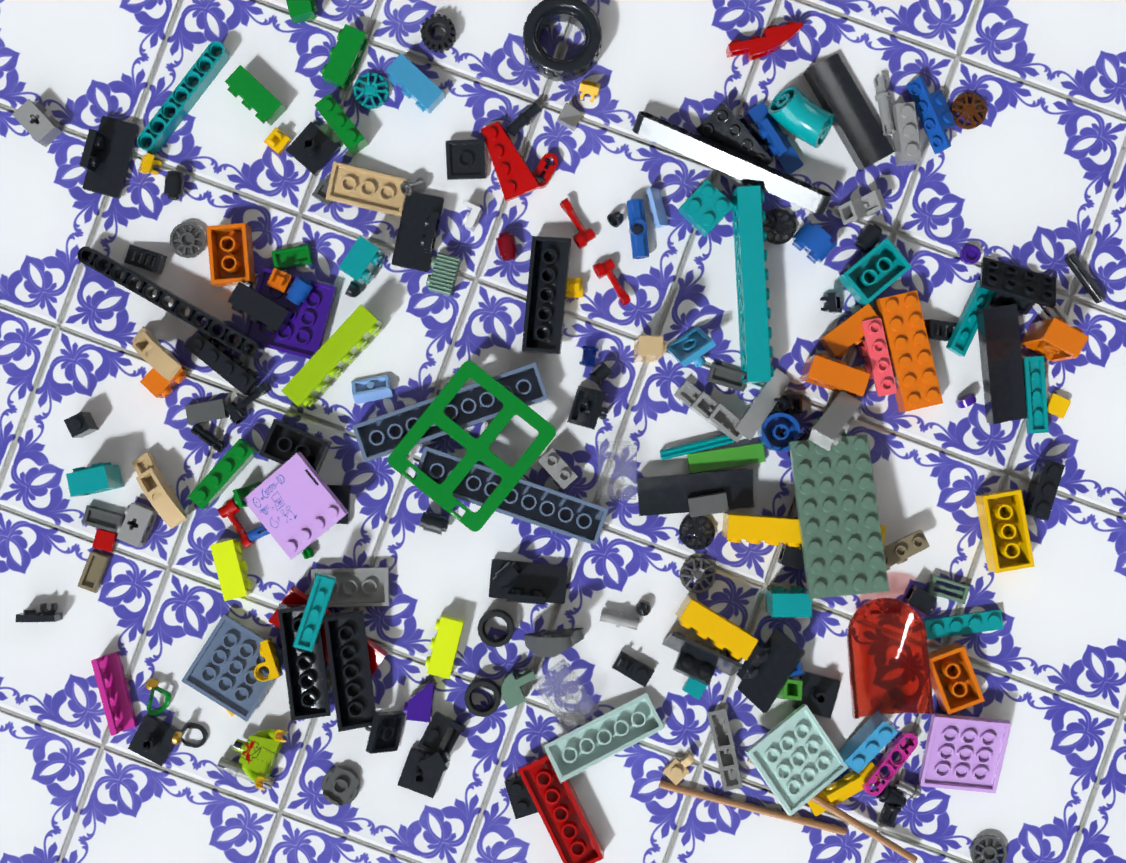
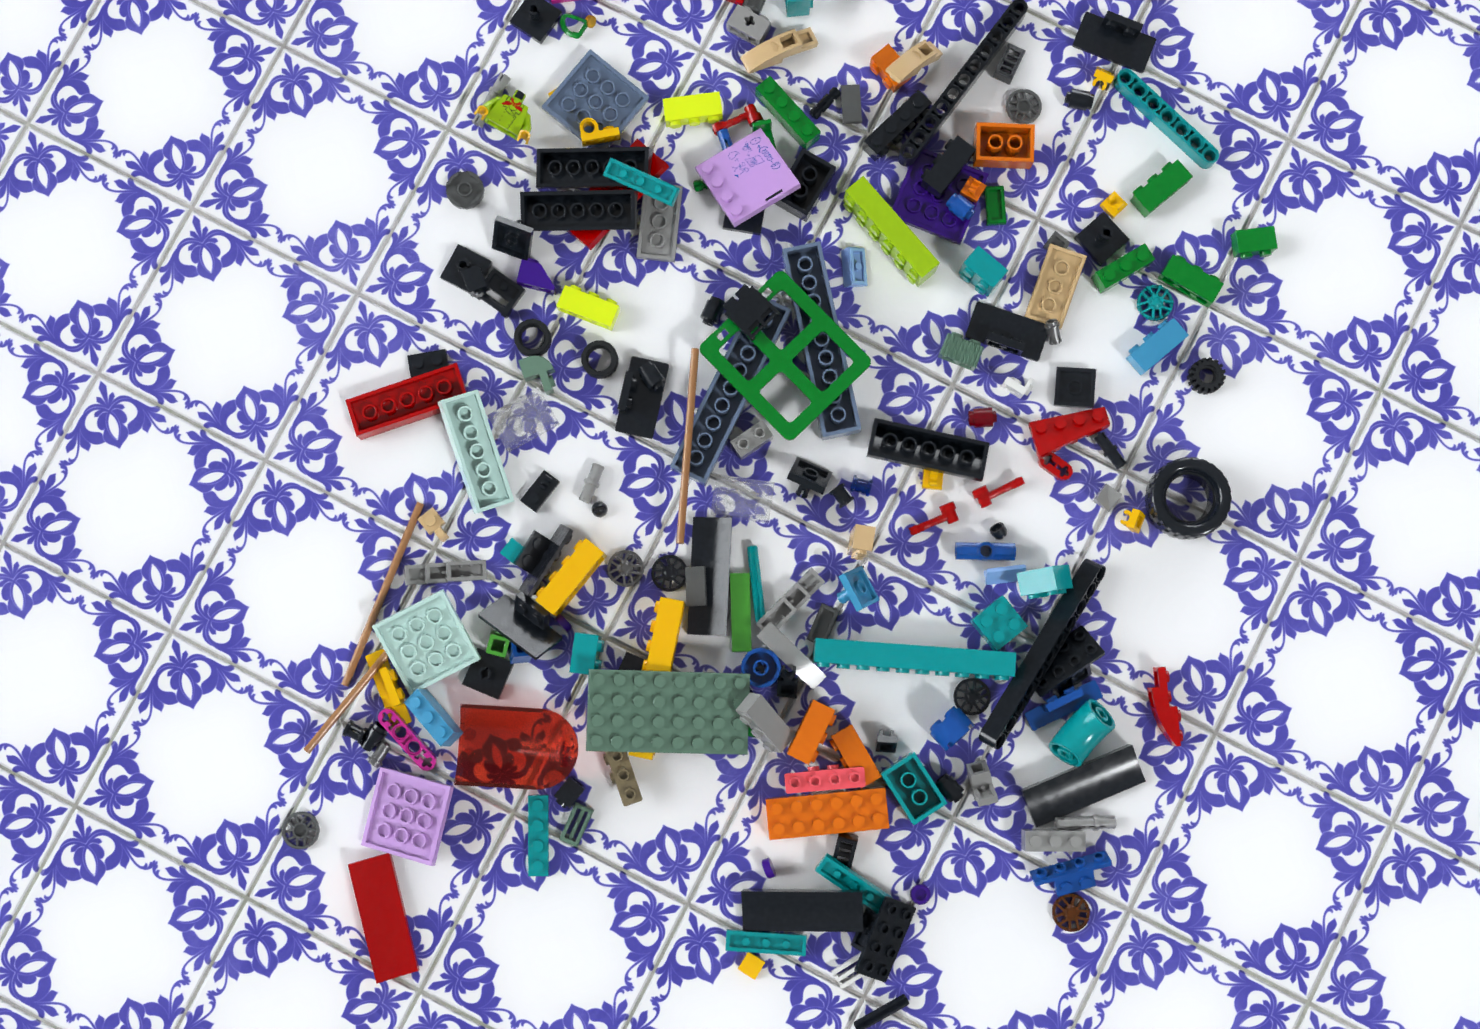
camera: 100 degrees right, 5 degrees down
(177, 738) = (535, 38): black piece -> none
(236, 411) = (848, 133): black brick -> none
(353, 290) = (955, 260): black hinge -> none
(432, 486) = (750, 311): none -> black plate
(553, 642) = (579, 413): dark grey connector -> none
(574, 530) = (687, 446): none -> medium nougat piece
(662, 167) = (1044, 581): none -> brick
(759, 628) = (563, 623): none -> dark purple tile
(953, 678) = (485, 814): orange brick -> none
(1004, 530) = (629, 889): yellow brick -> none
(1043, 489) = (666, 935): black brick -> none
(1054, 339) = (821, 965): orange brick -> none
(1060, 762) = (383, 917): none -> red arch

